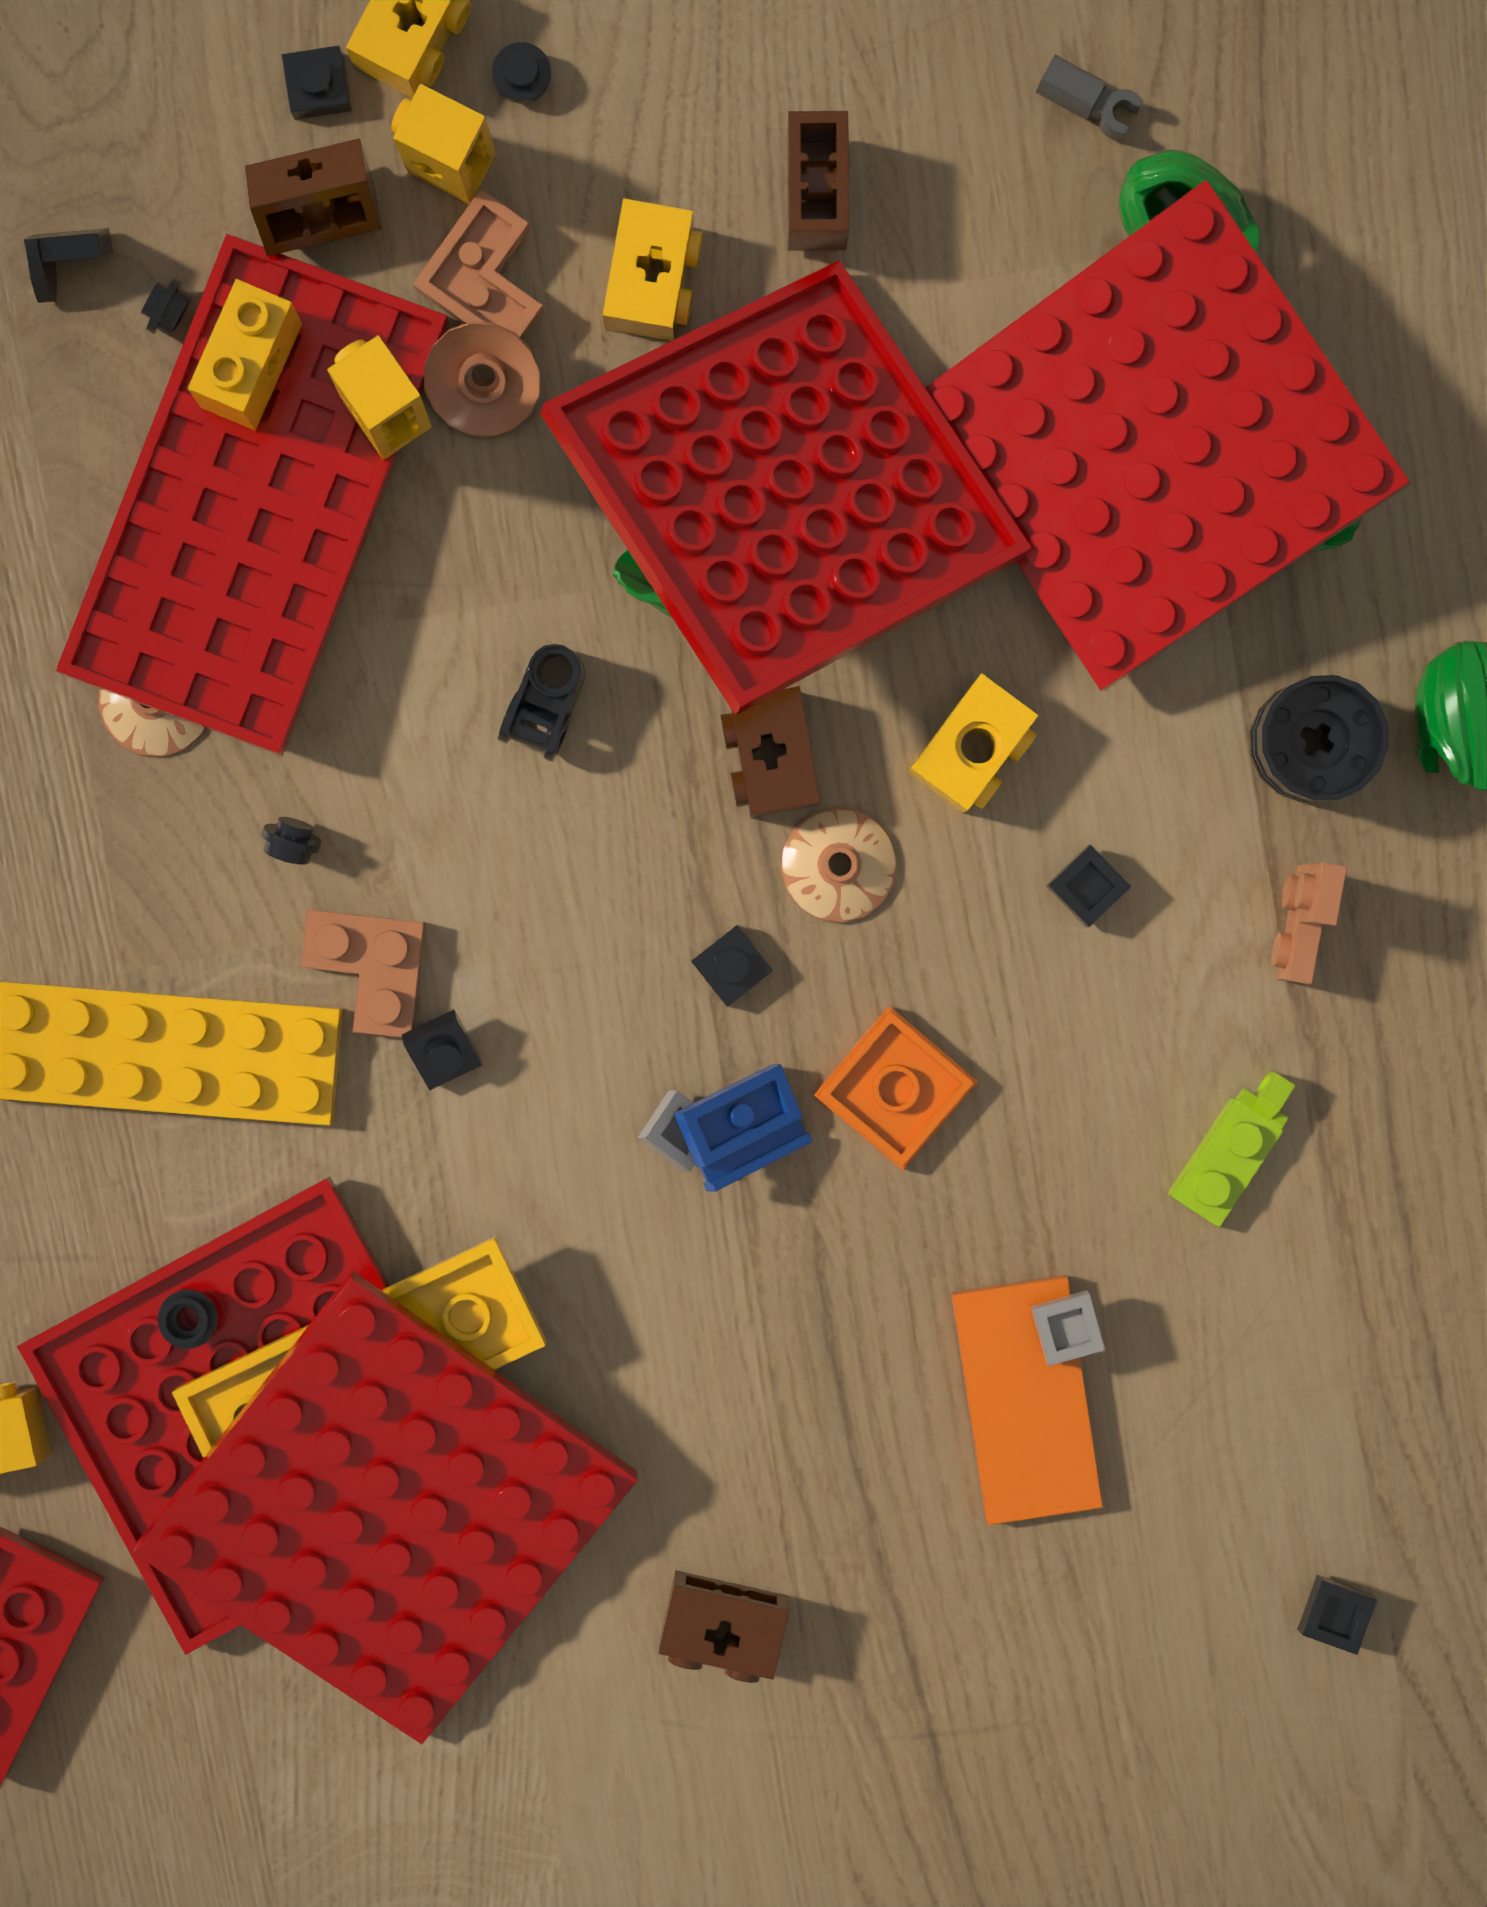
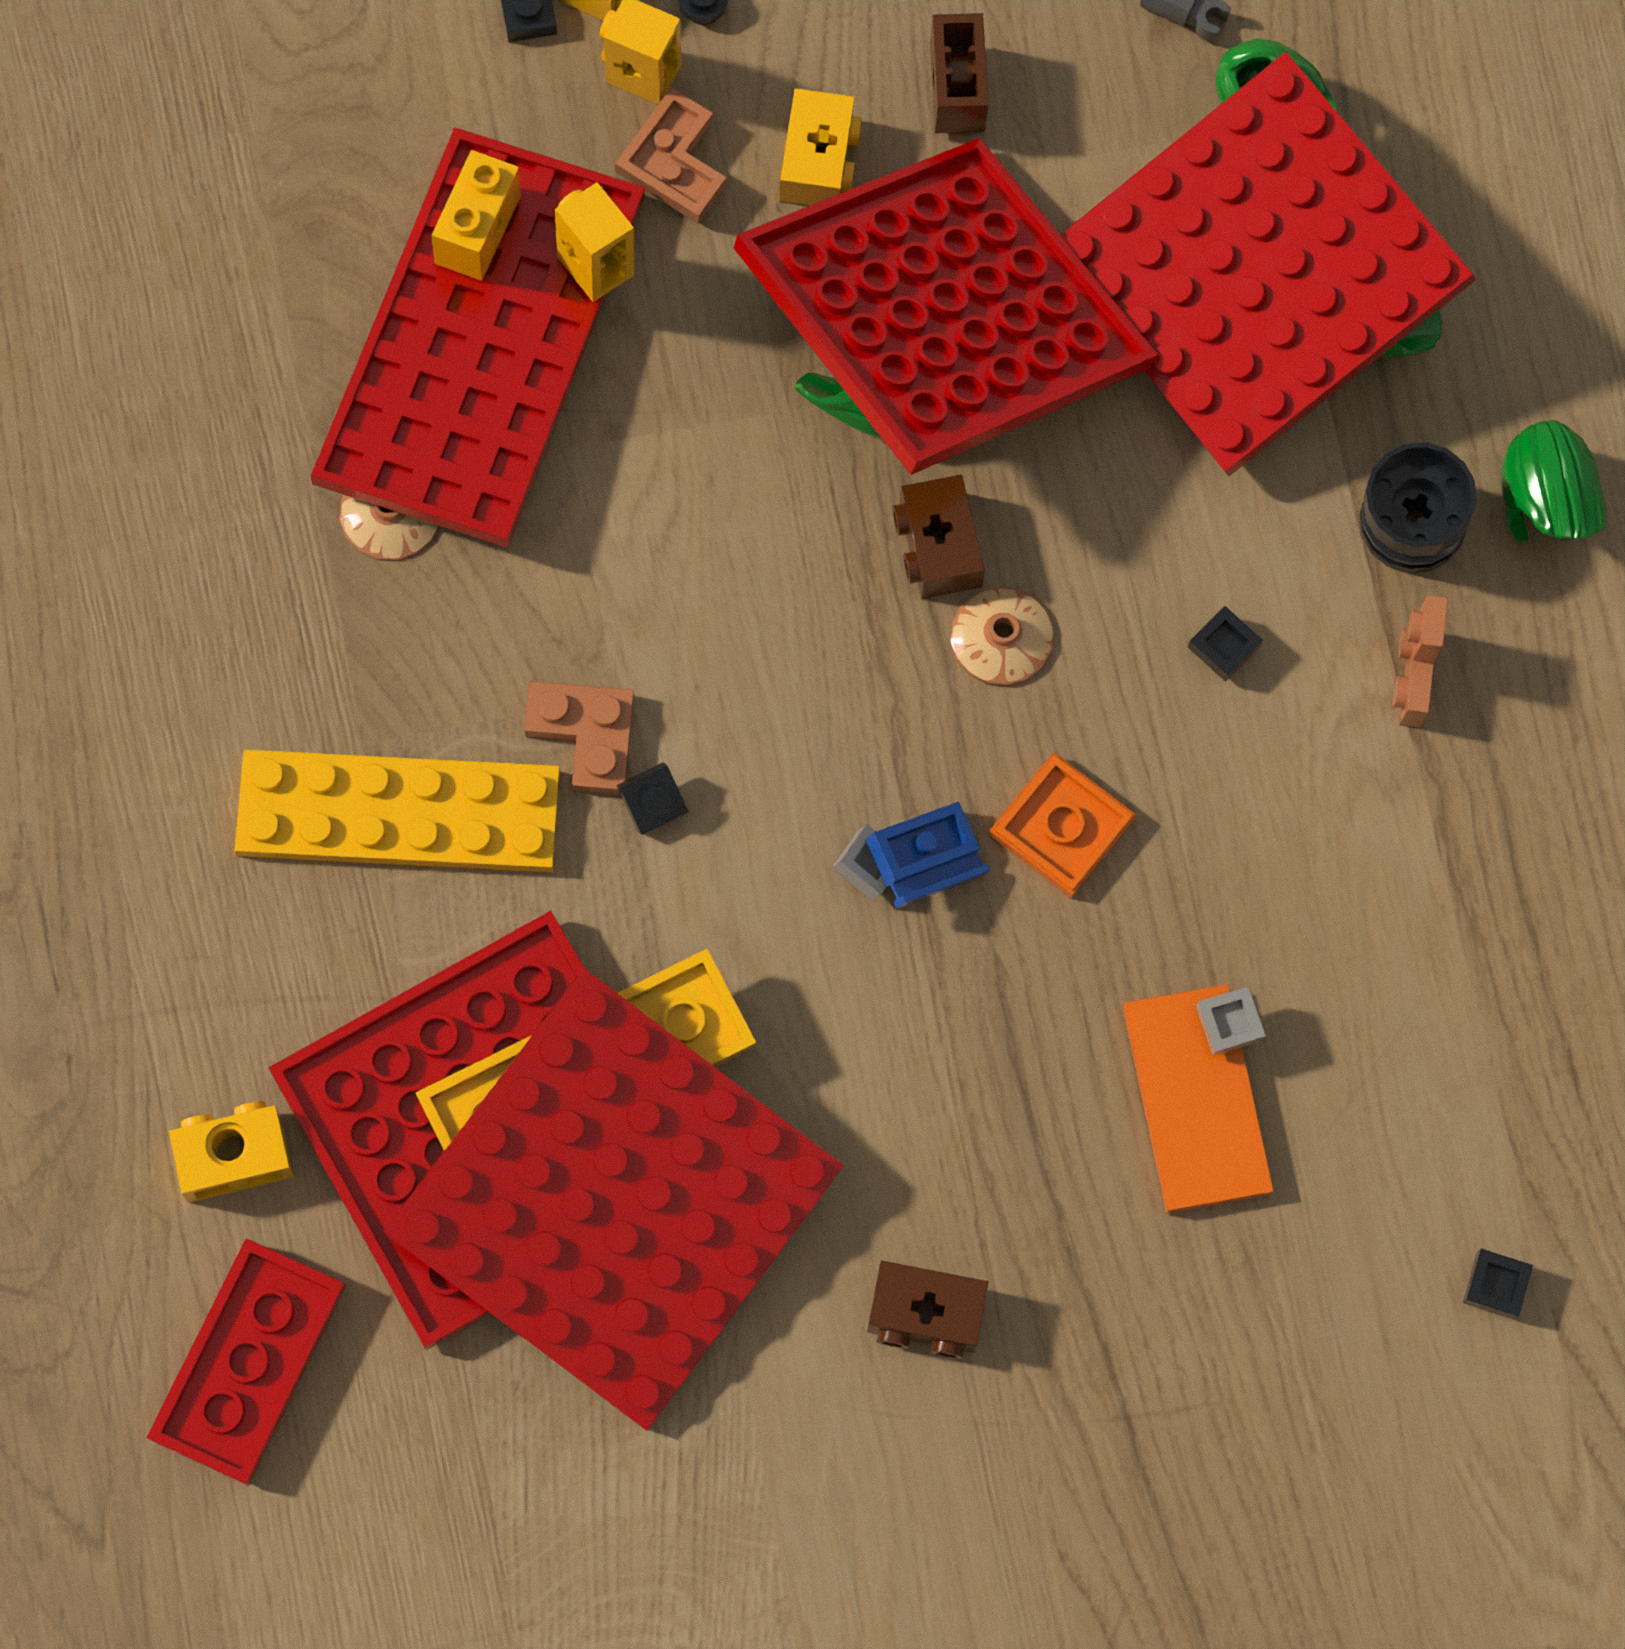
camera: 10 degrees left, 15 degrees down
(47, 248) = (310, 142): black tile -> none
(166, 307) = (401, 188): black plate -> none
(172, 1327) = (424, 1017): black plate -> none
(290, 841) = (514, 622): black plate -> none
(312, 197) = (530, 95): reddish brown brick -> none
(477, 404) = (685, 262): nougat dish -> none
(542, 704) = (736, 506): black piece -> none
(731, 966) = (910, 722): black plate -> none
(984, 710) = (1124, 498): yellow brick -> none
(1233, 1150) = (1370, 871): lime hinge -> none

